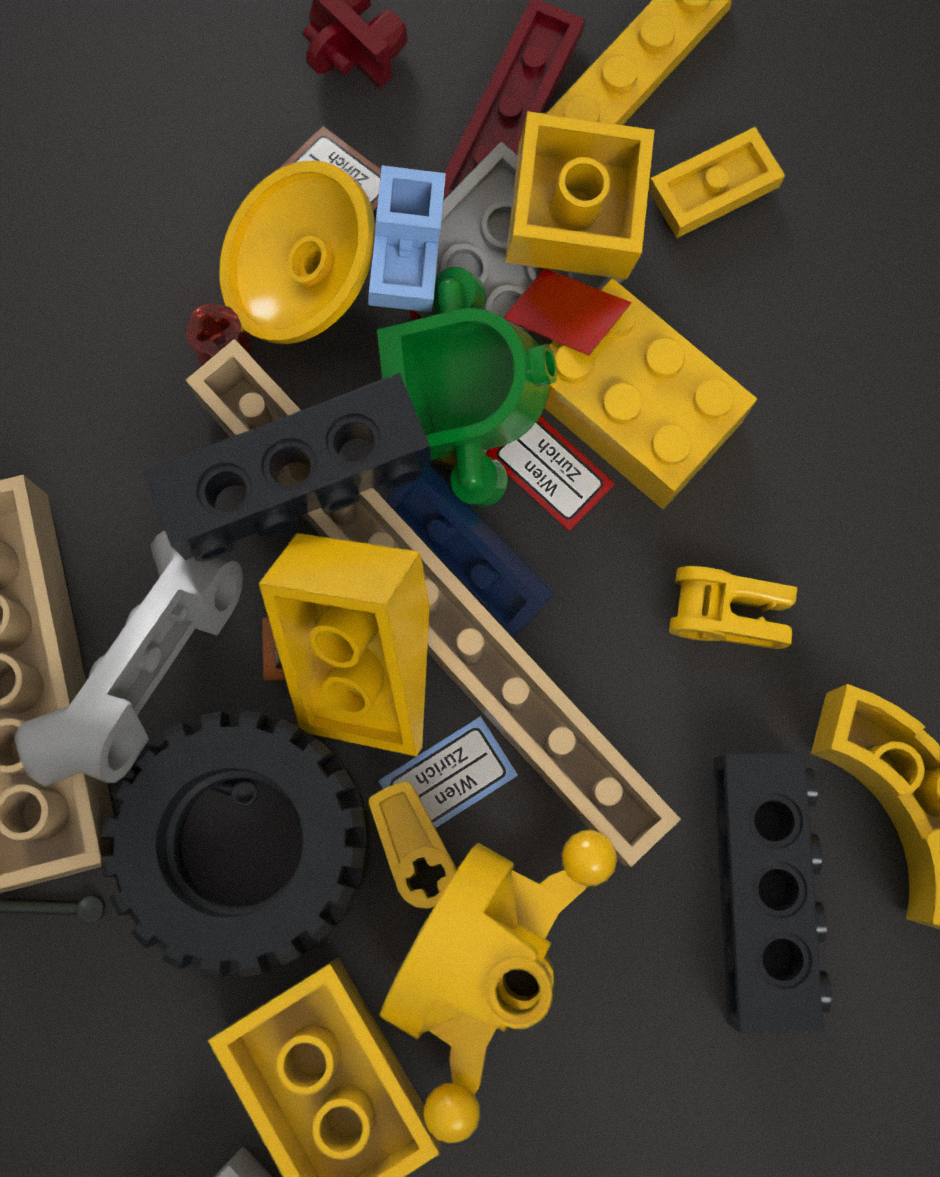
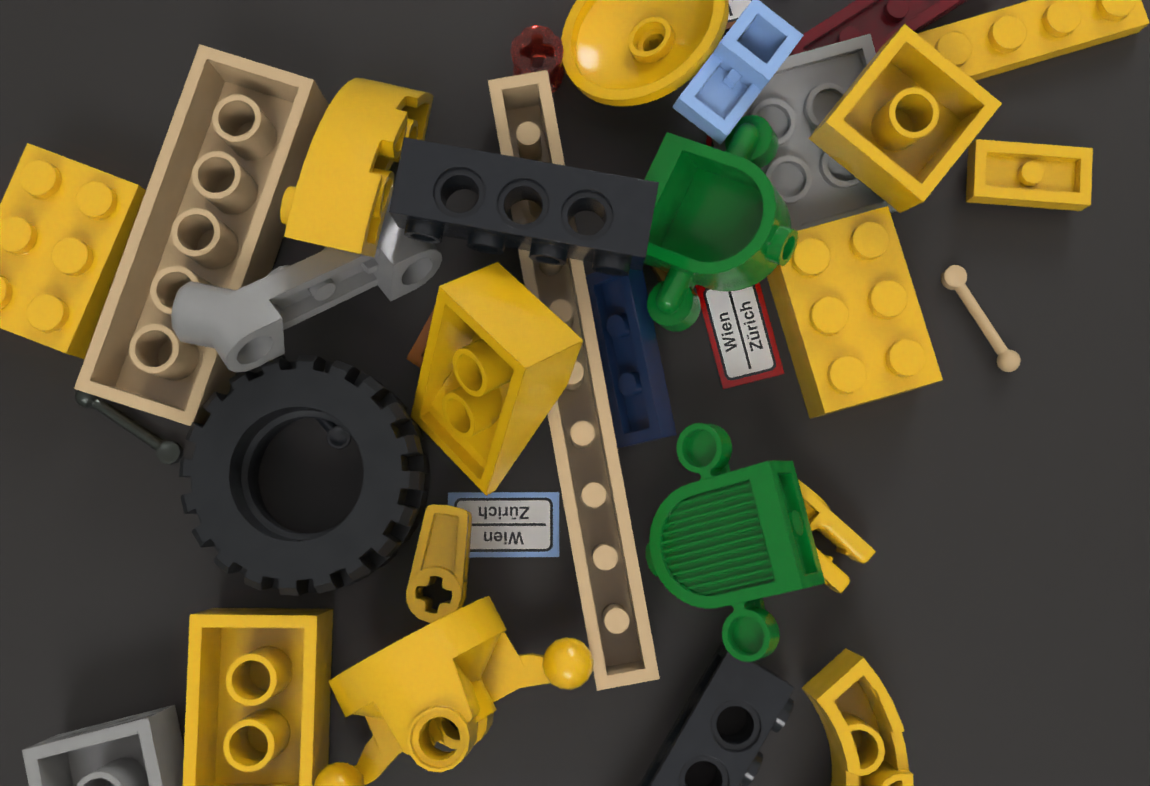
camera: 30 degrees right, 5 degrees up
(106, 537) = (347, 166): none -> yellow brick
(567, 311) = (832, 211): red sticker -> none
(665, 653) = (733, 539): none -> green piece
(710, 310) = (954, 279): none -> tan hinge

